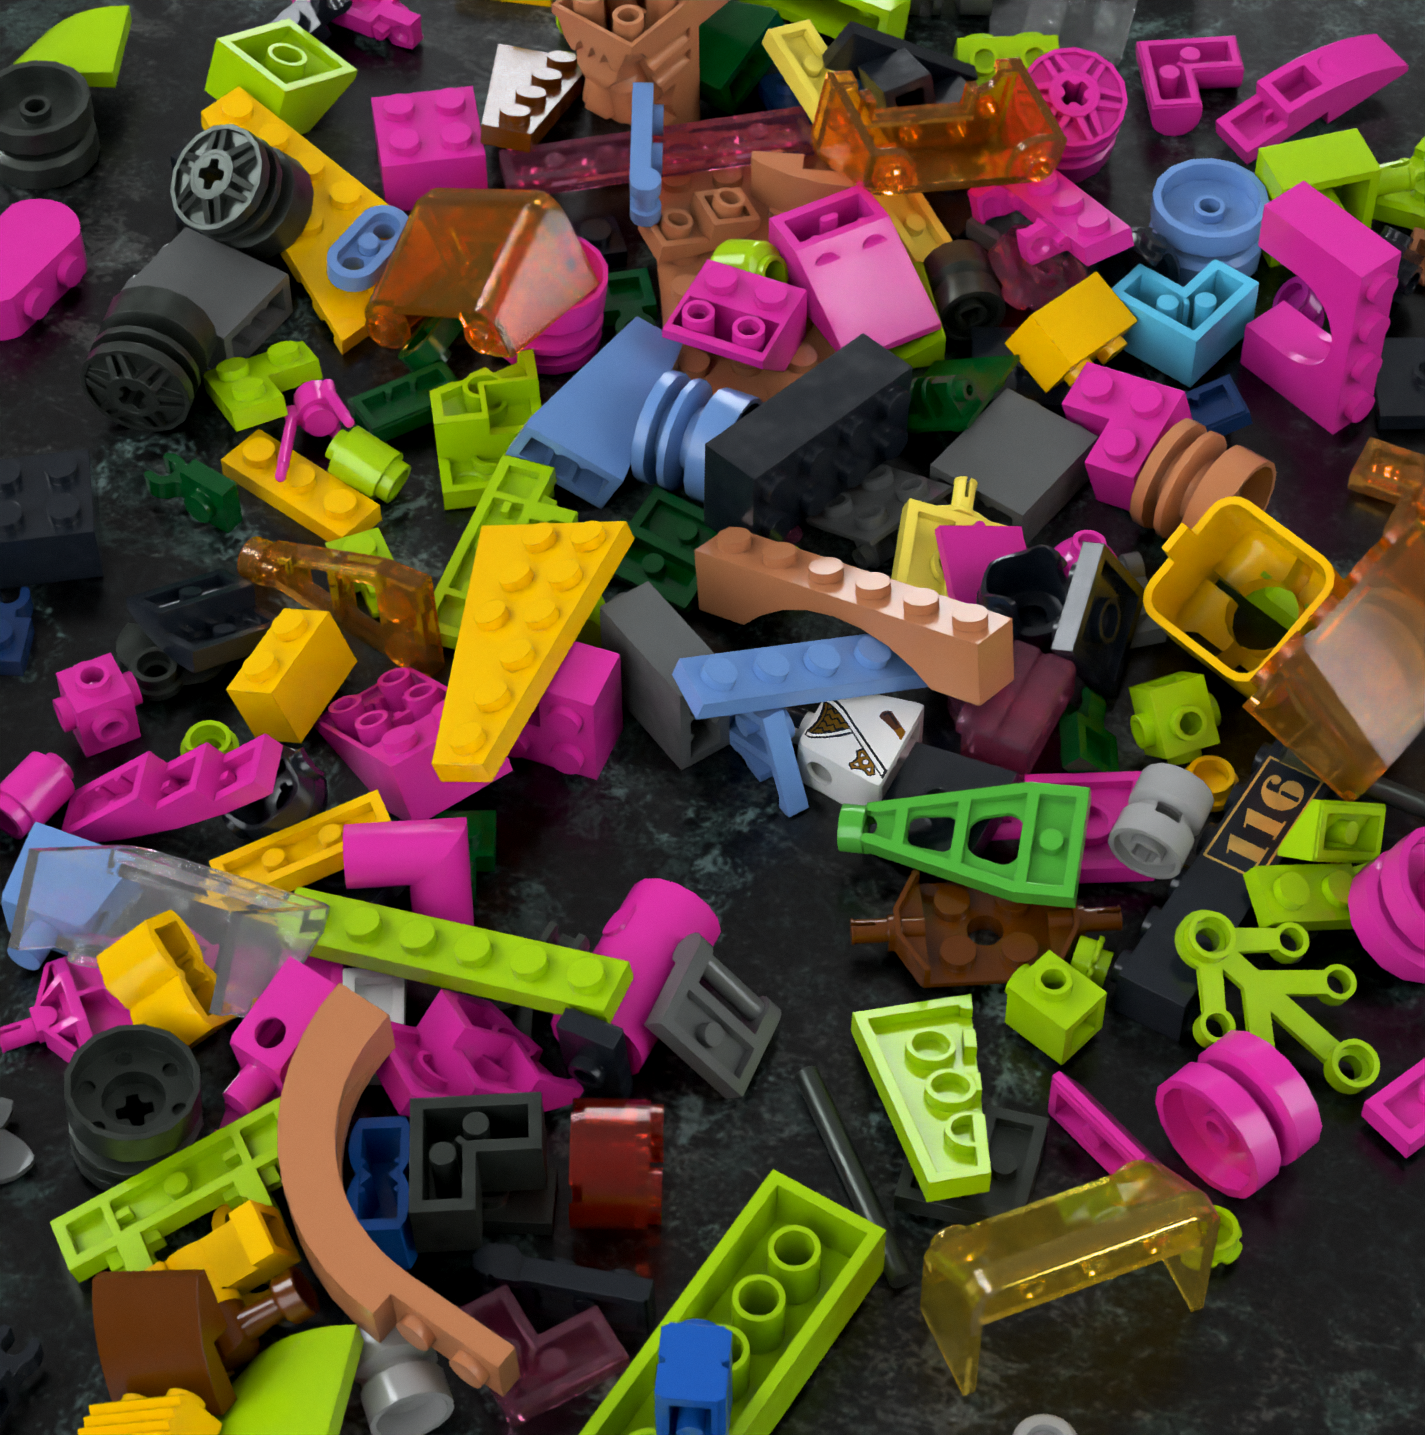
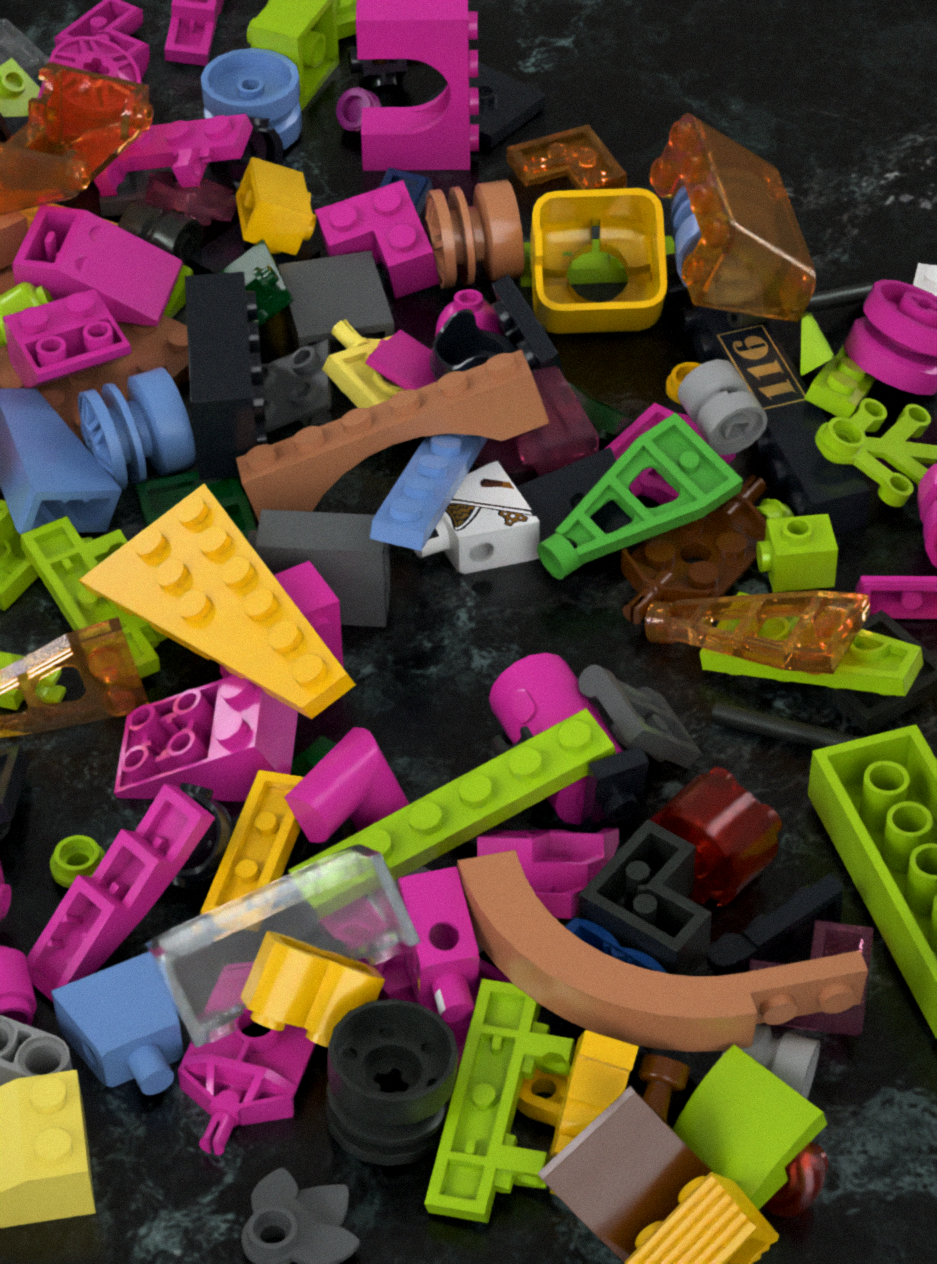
camera: 50 degrees left, 5 degrees down
(292, 674) = (78, 768): yellow brick -> none
(767, 748) = (441, 562): medium blue wing -> none
(922, 1084) = (815, 645): none -> clear orange plate
(1174, 717) = (631, 359): lime brick -> none
(1187, 326) = (322, 152): medium azure brick -> none

